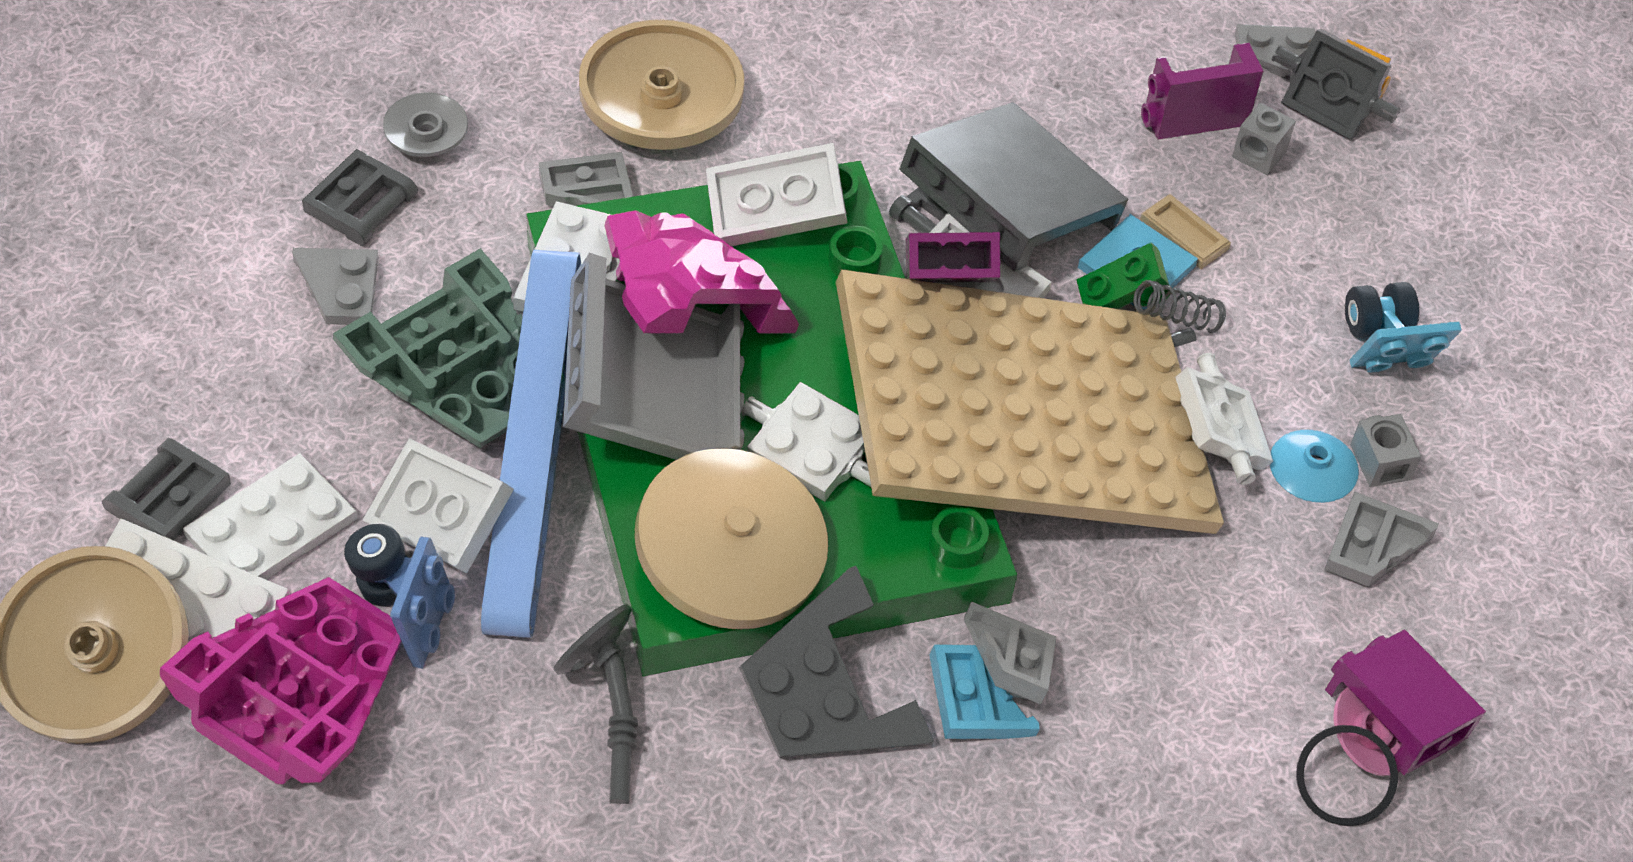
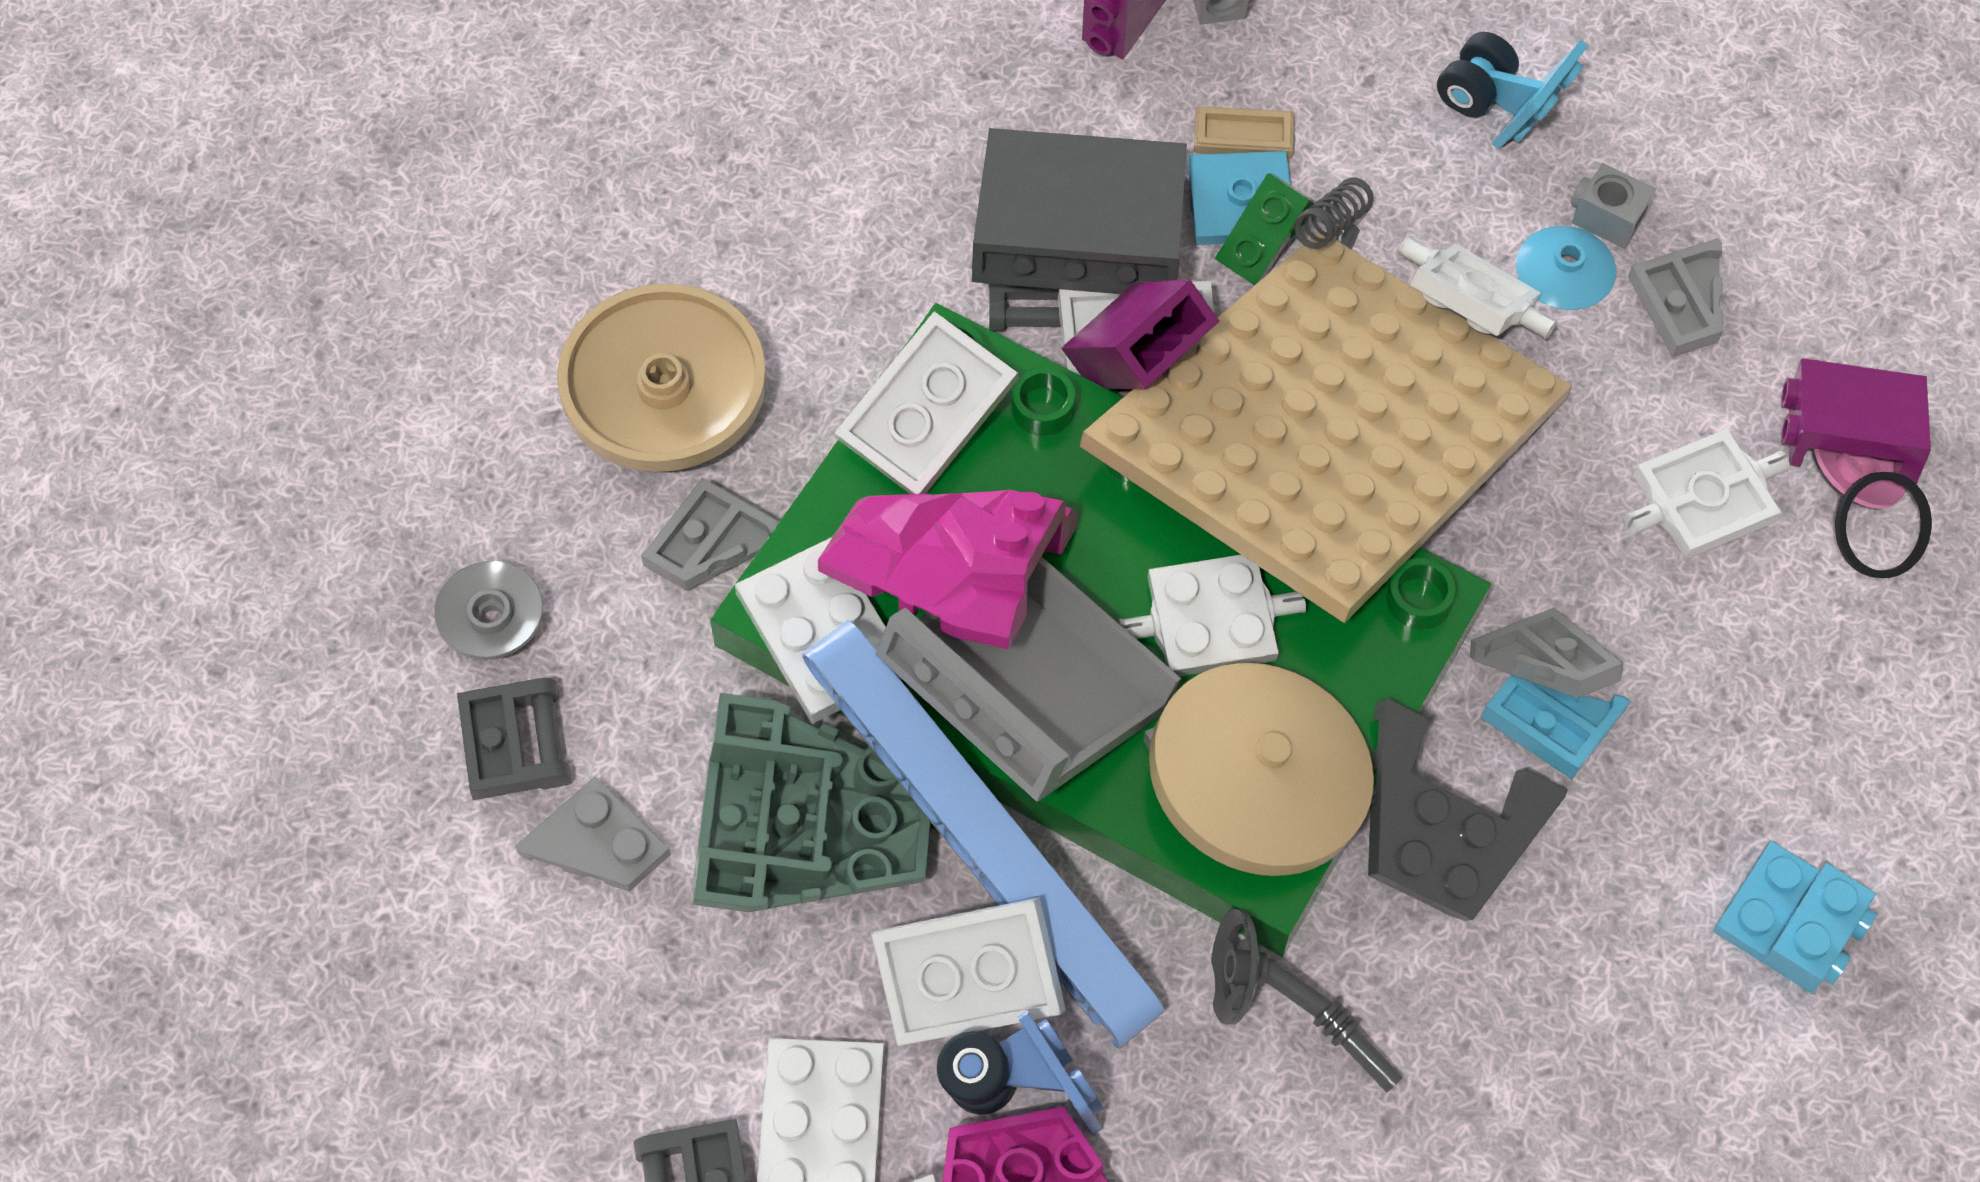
camera: 40 degrees left, 10 degrees up
(1245, 660) = (1707, 493): none -> white plate

